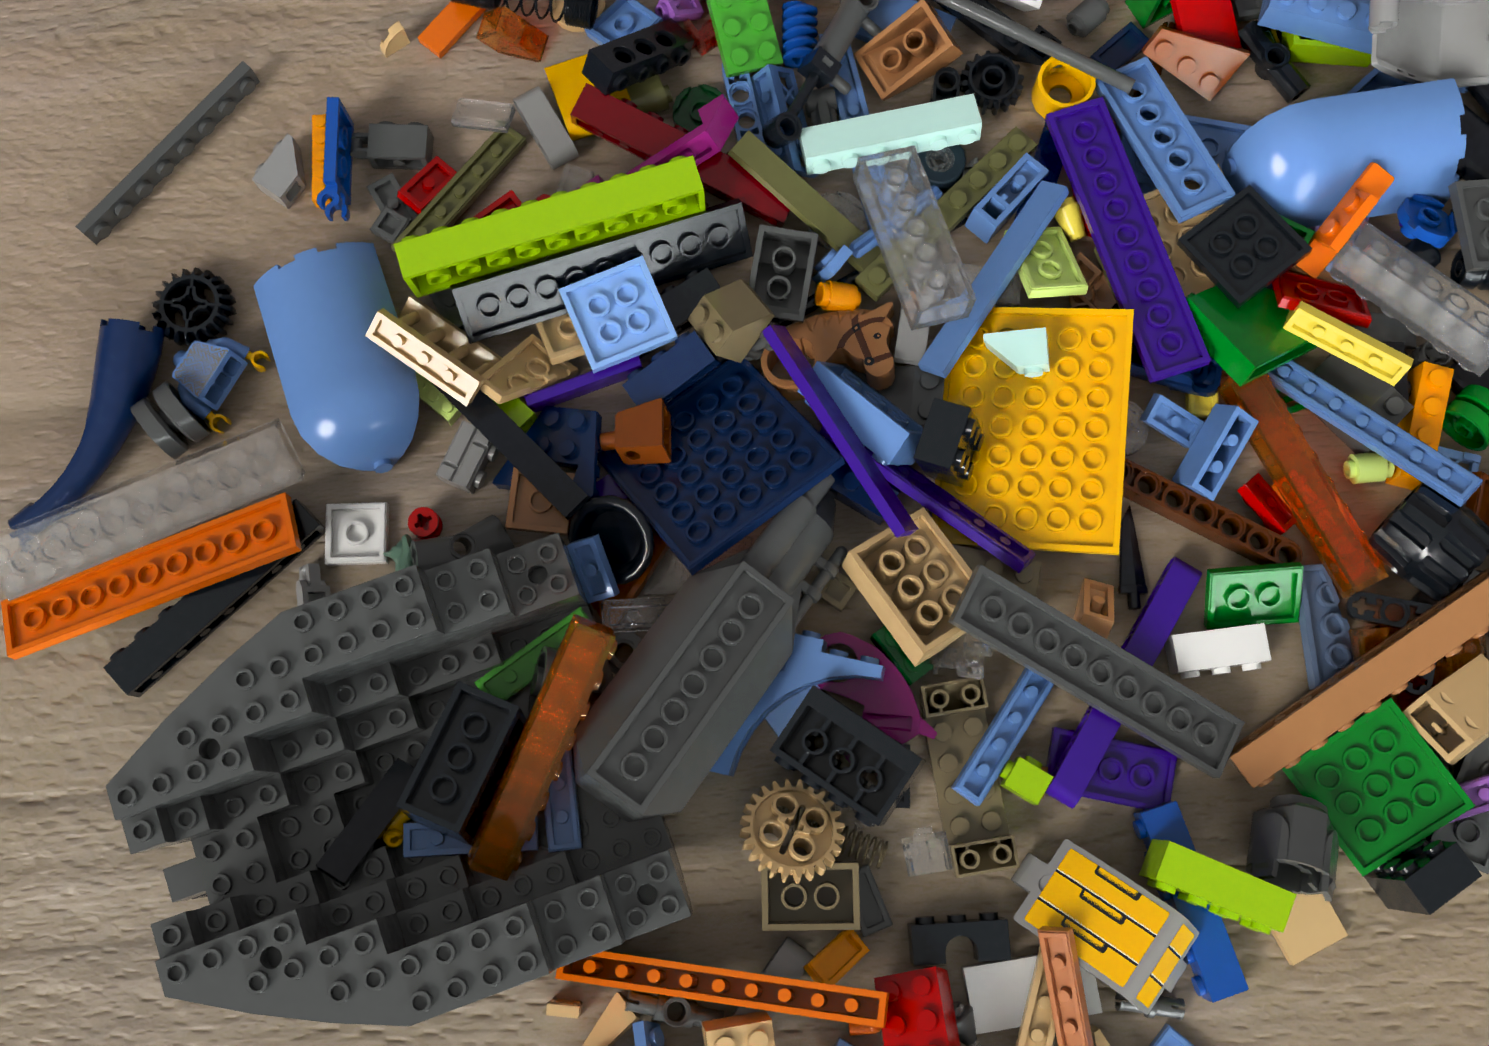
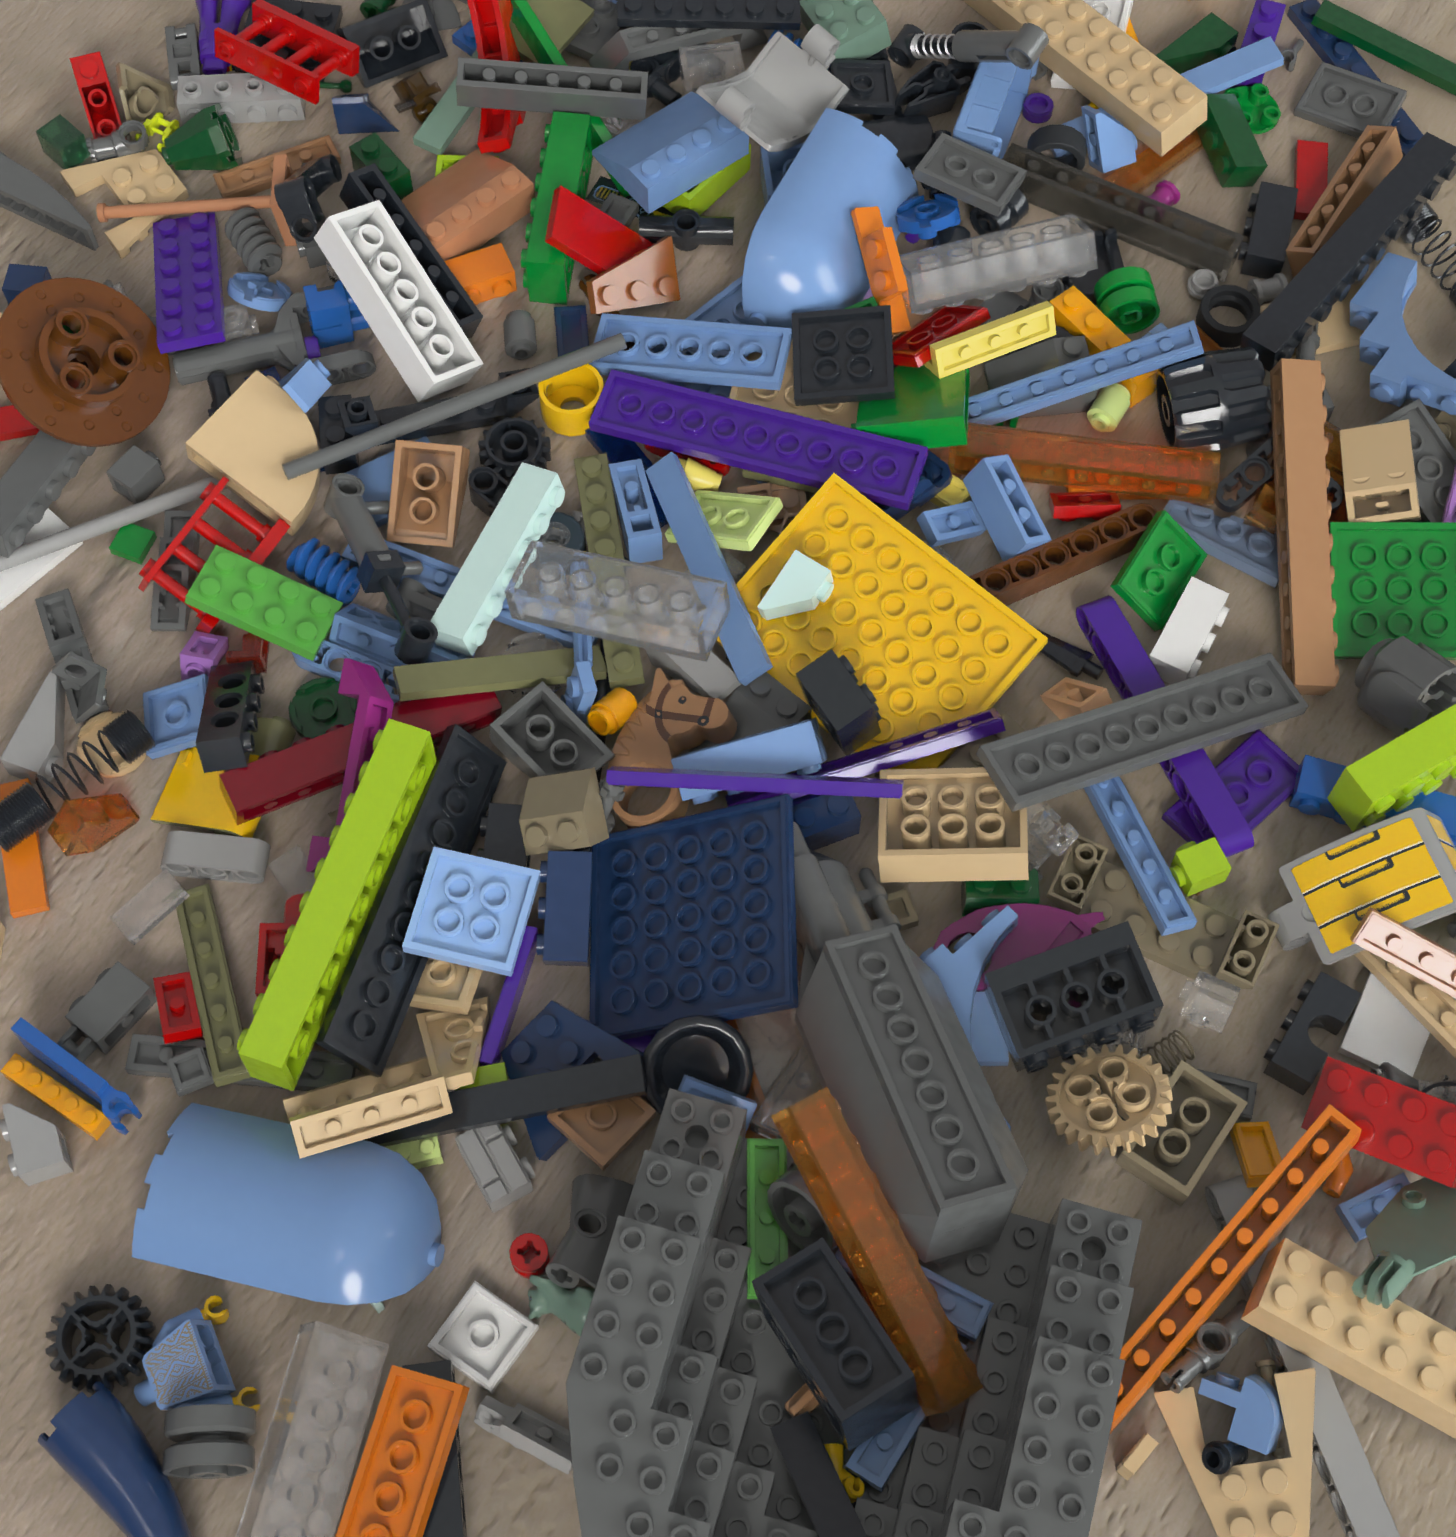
camera: 55 degrees left, 15 degrees down
(641, 434) = (610, 974): dark orange torso -> none

